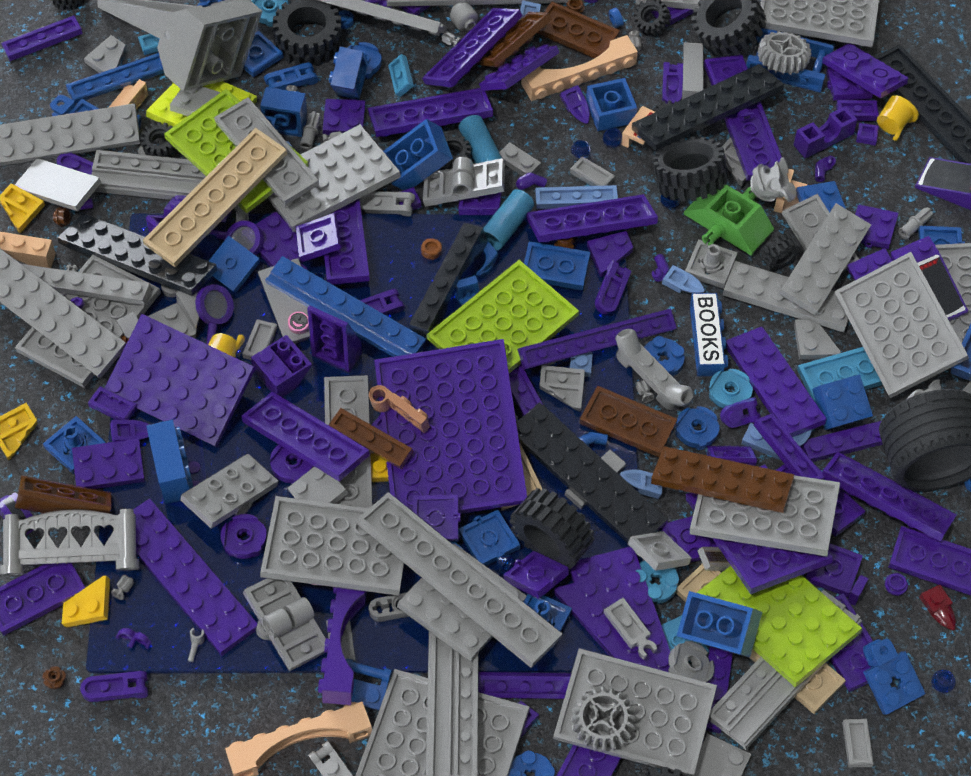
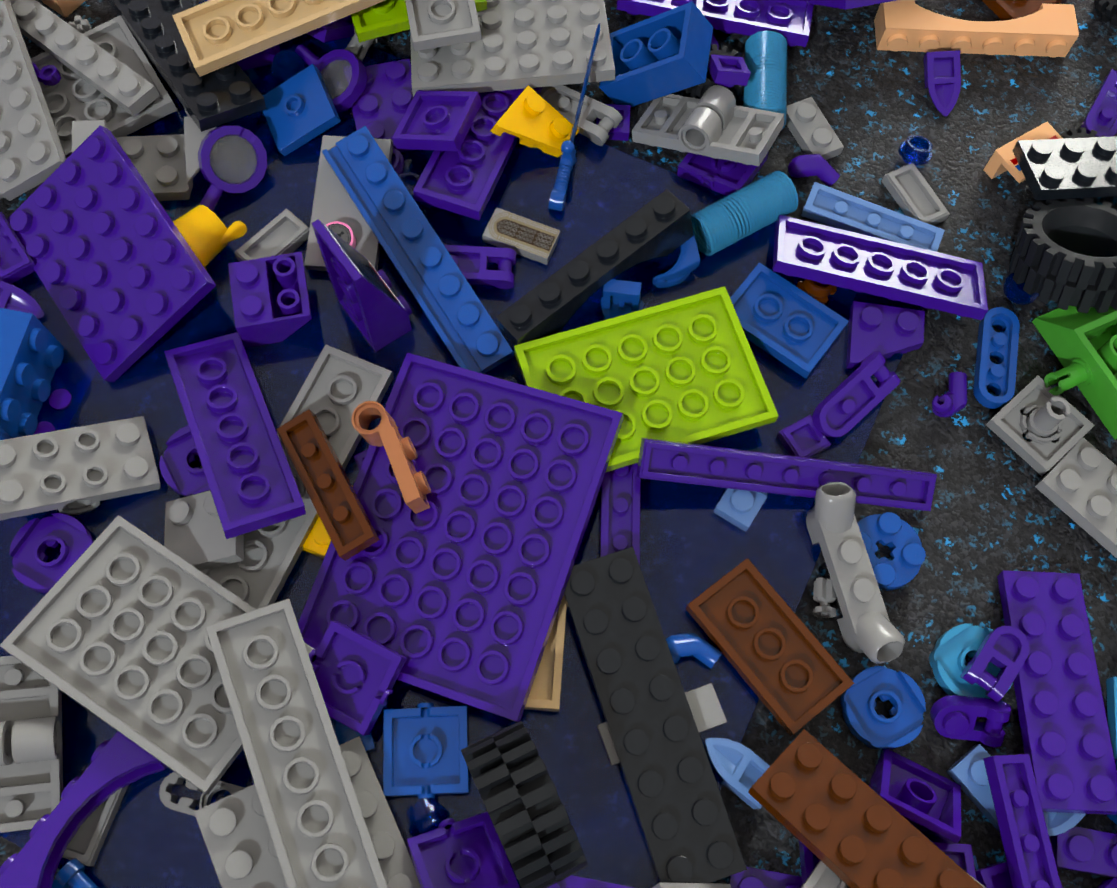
camera: 25 degrees right, 10 degrees up
(370, 217) = (535, 123): none -> yellow wing
(393, 279) = (522, 235): none -> tile
(397, 228) = (568, 155): none -> blue sword
(431, 249) = (605, 210): dark orange tile -> none
(461, 147) = (728, 70): none -> dark purple plate
(563, 384) = (693, 528): light grey wing -> none
(596, 319) = (803, 439): none -> dark purple tile
(611, 104) = (998, 99): blue brick -> none
(612, 137) = (975, 152): clear blue plate -> none
(635, 39) = (1083, 14): light grey piece -> none
(674, 233) = (1002, 347): none -> blue plate
(681, 280) = (977, 432): medium blue plate -> none
(707, 334) = (978, 547): brick -> none
(740, 373) = (1006, 649): none -> dark purple plate

